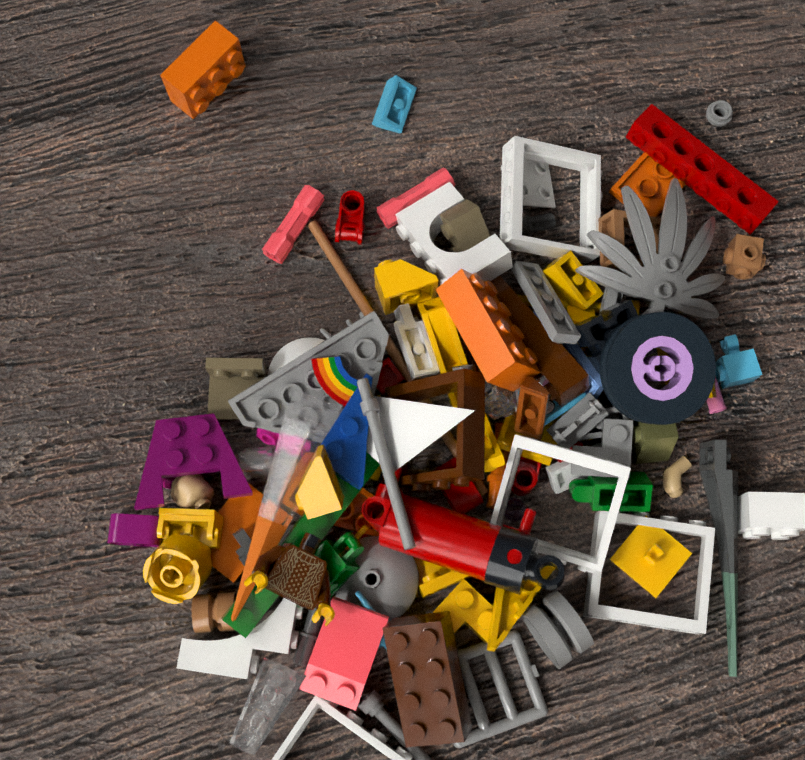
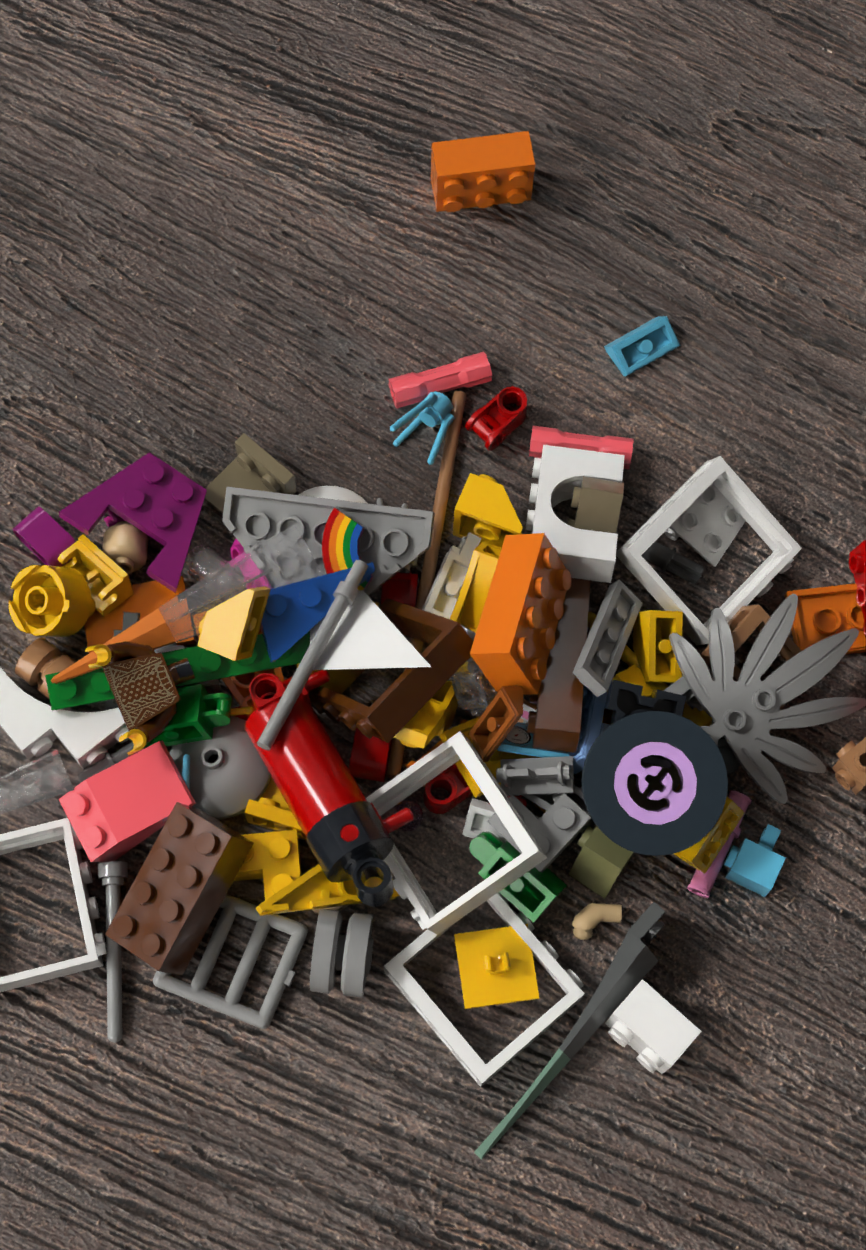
camera: 40 degrees right, 5 degrees down
(308, 247) = (432, 411): none -> medium azure plant

